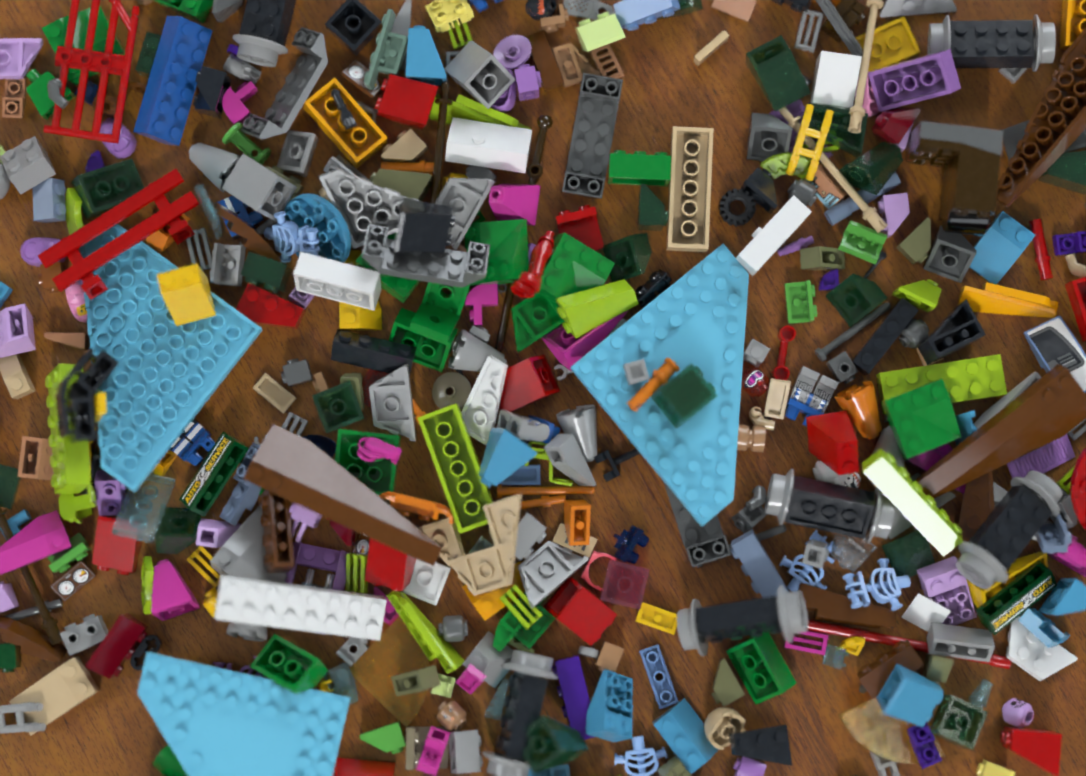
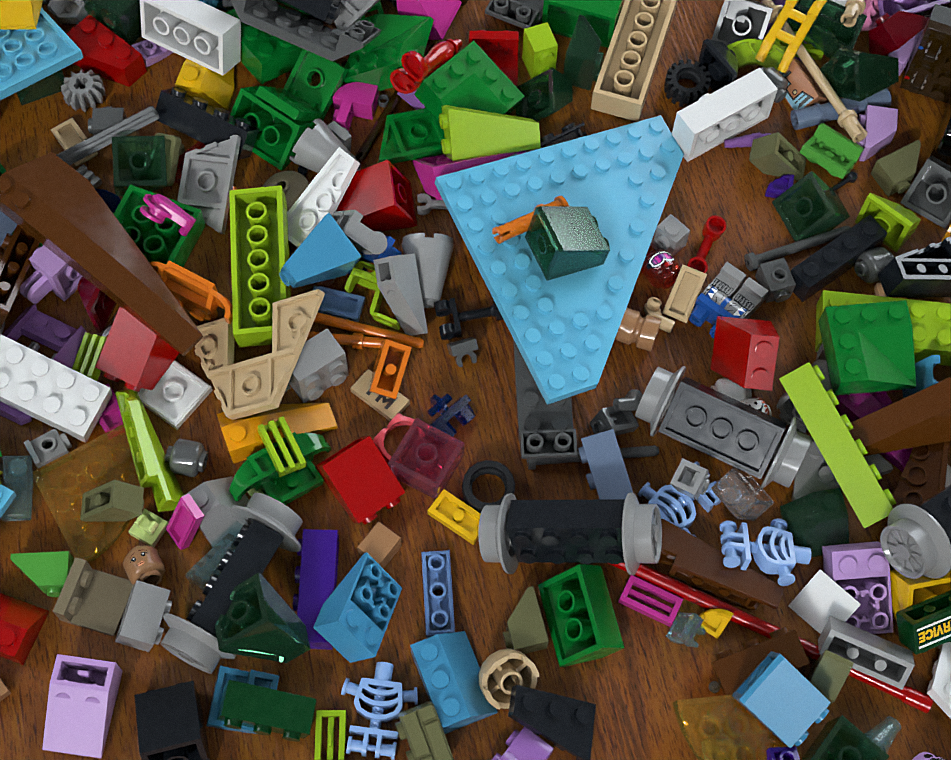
camera: 15 degrees right, 20 degrees down
(266, 354) = (83, 90): none -> light grey gear
(300, 392) = (104, 137): none -> dark grey axle
(433, 750) = (102, 599): dark pink brick -> none
(548, 570) = (333, 416): light grey wing -> none
(588, 652) = (352, 534): light grey tile -> none
(616, 217) = (539, 49): none -> lime brick
(624, 487) = (461, 348): none -> dark grey tile
(636, 372) = (514, 201): light grey plate -> none
(673, 606) = (483, 468): none -> black tyre
(800, 302) = (738, 197): bright green bracket -> none
(861, 408) = (794, 326): orange cone -> none

